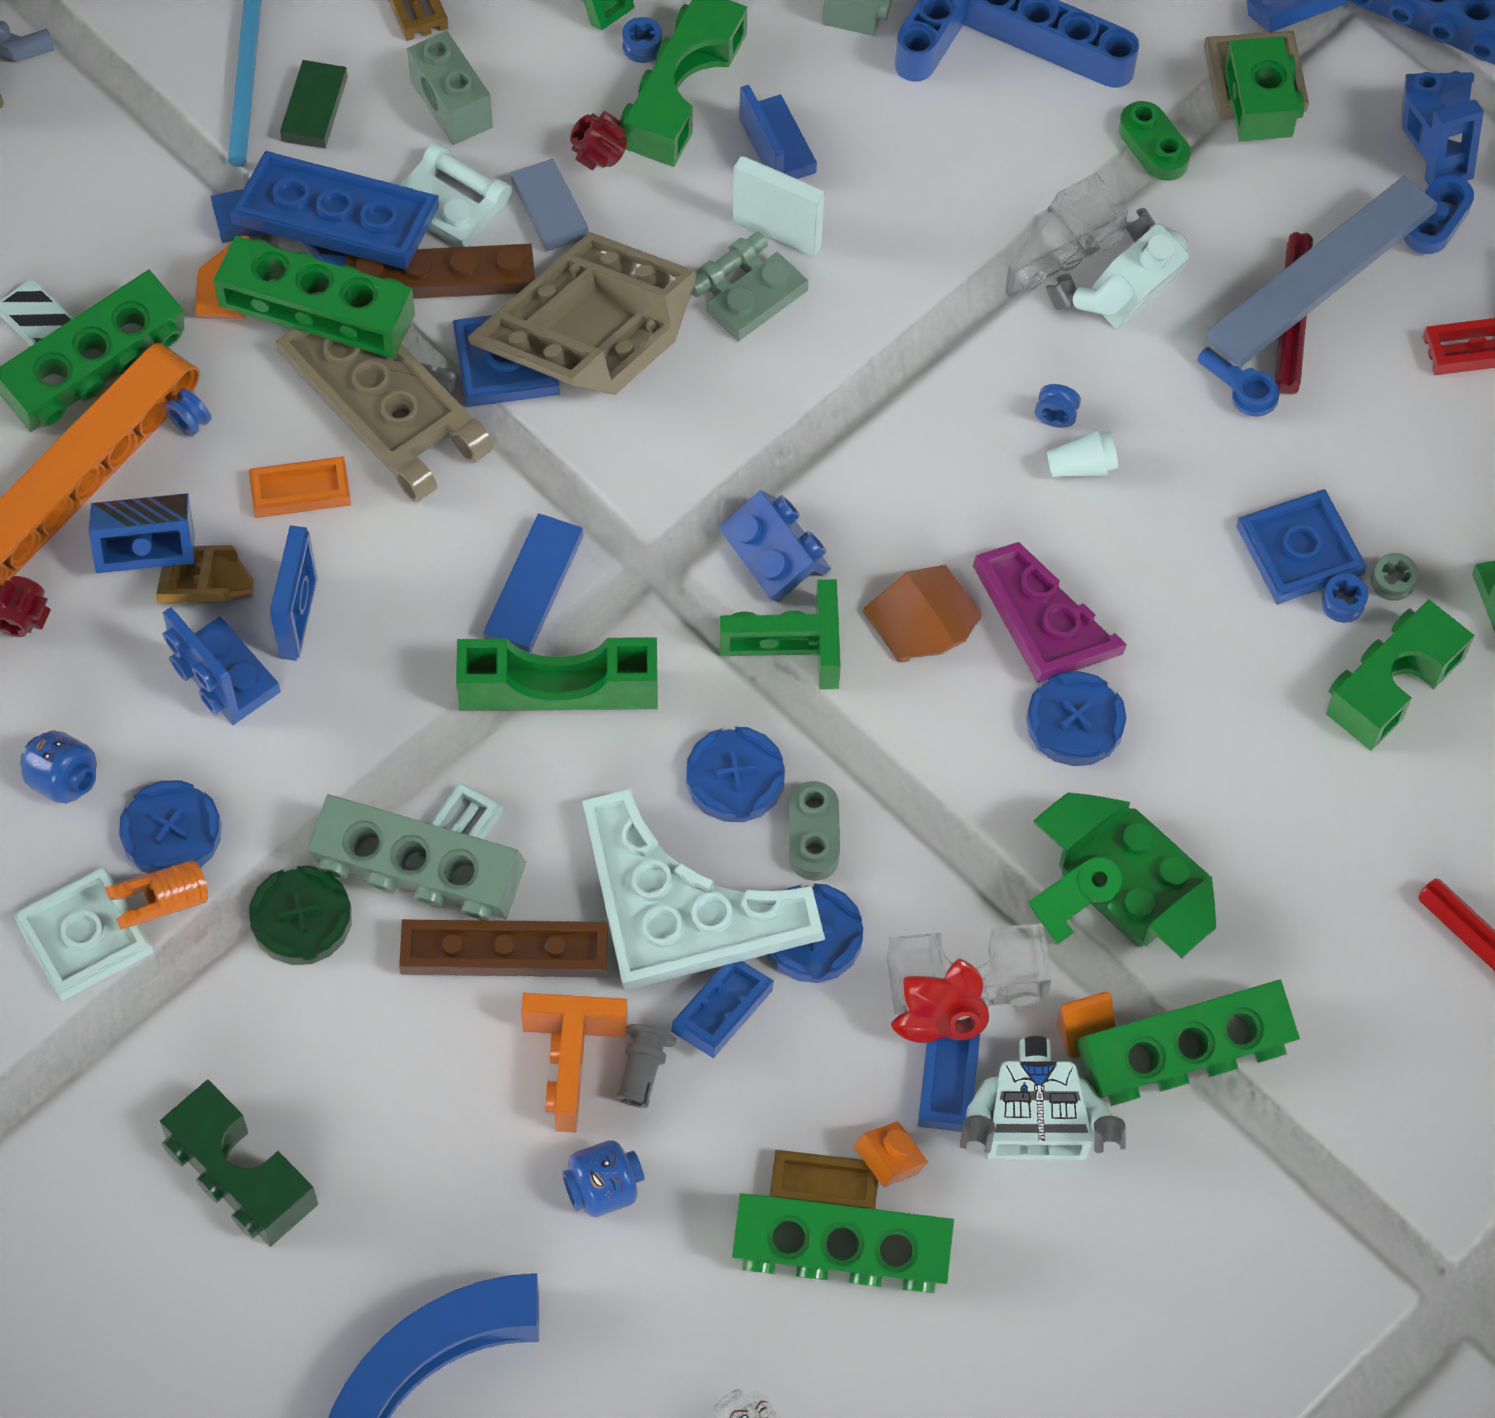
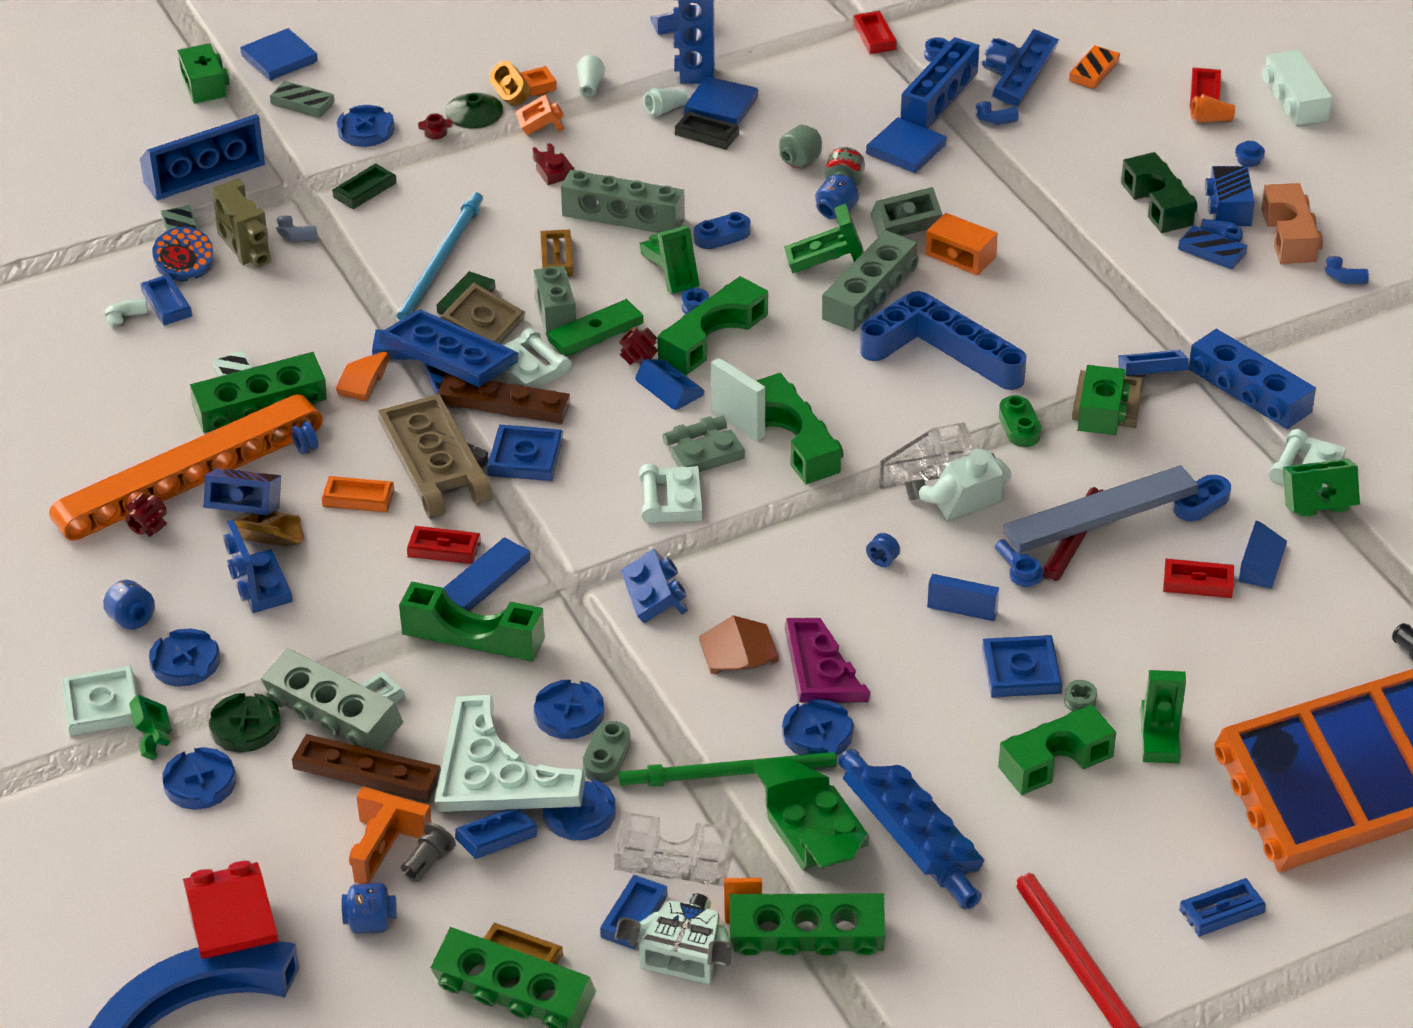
camera: 20 degrees right, 20 degrees down
(164, 892) = (163, 684): orange hinge -> none
(176, 953) = (153, 721): none -> green plate
(265, 1197) = (142, 865): dark green arch -> none
(276, 1025) = (199, 778): none -> blue tile
(289, 300) = (411, 386): green brick -> none
(293, 593) = (320, 539): blue tile -> none
(356, 135) = (484, 314): none -> dark tan tile
(430, 1251) = (229, 909): none -> red slope
(455, 551) = (443, 544): none -> red tile
(522, 119) = (595, 327): none -> green tile
(549, 204) = (592, 377): sand blue tile -> none
(592, 315) = (590, 437): dark tan slope -> none
(657, 189) = (667, 383): none -> blue slope
(748, 372) = (682, 494): none -> light aqua plate
(775, 134) = (758, 361): blue panel -> none
(790, 634) = (640, 636): green bracket -> none
(890, 1153) = (570, 942): orange plate -> none
(898, 851) = (657, 774): none -> green bar
(907, 262) = (813, 449): none -> green arch
(939, 1003) = (636, 852): red plate -> none
(1085, 456) = (889, 581): light aqua cone -> none
(1090, 882) = (765, 818): green leg -> none
(1192, 459) = (963, 597): none -> blue tile
(1262, 841) = (916, 824): none -> blue plate
(1339, 609) = (1039, 709): blue bush -> none
(1439, 108) = (1223, 430): blue tile -> none

